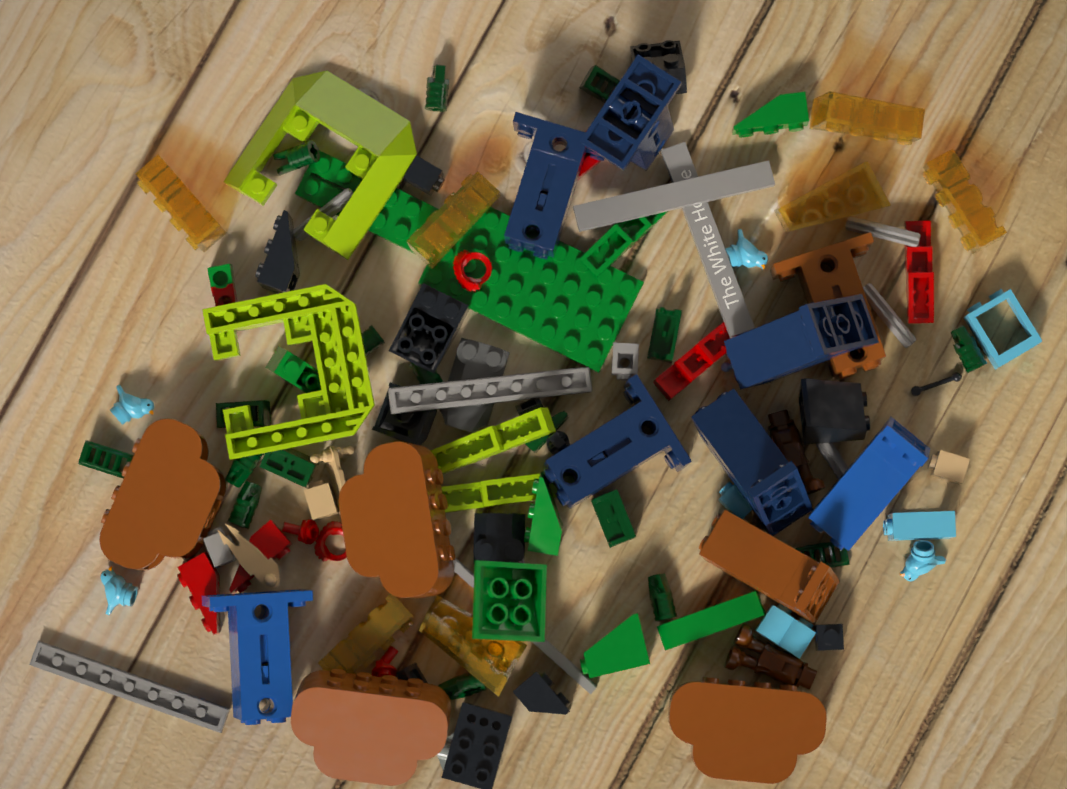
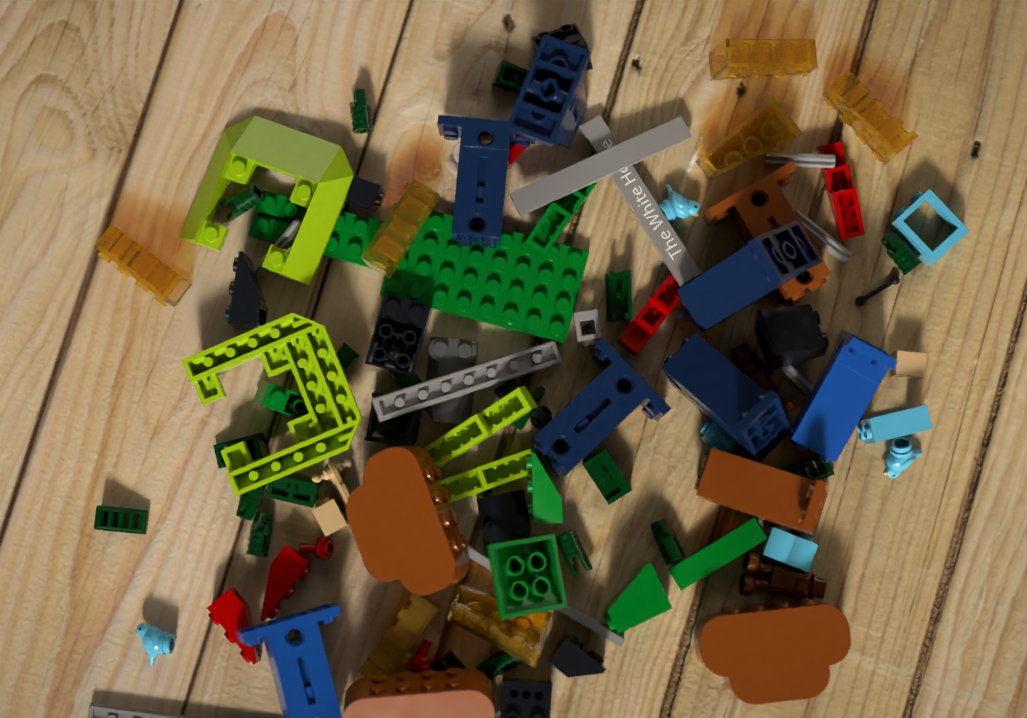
camera: 20 degrees left, 0 degrees up
(131, 407) = (133, 465): medium azure animal -> none
(164, 498) = (180, 547): dark orange brick -> none
(219, 553) = (244, 580): light grey brick -> none
(222, 284) = (197, 332): leg -> none
(253, 560) = (277, 586): tan piece -> none
(321, 549) = (346, 539): red piece -> none
(469, 283) = (415, 266): red piece -> none
(562, 582) = (571, 547): none -> dark green hinge
(780, 113) = (686, 68): green slope -> none
(829, 637) = (831, 546): black brick -> none

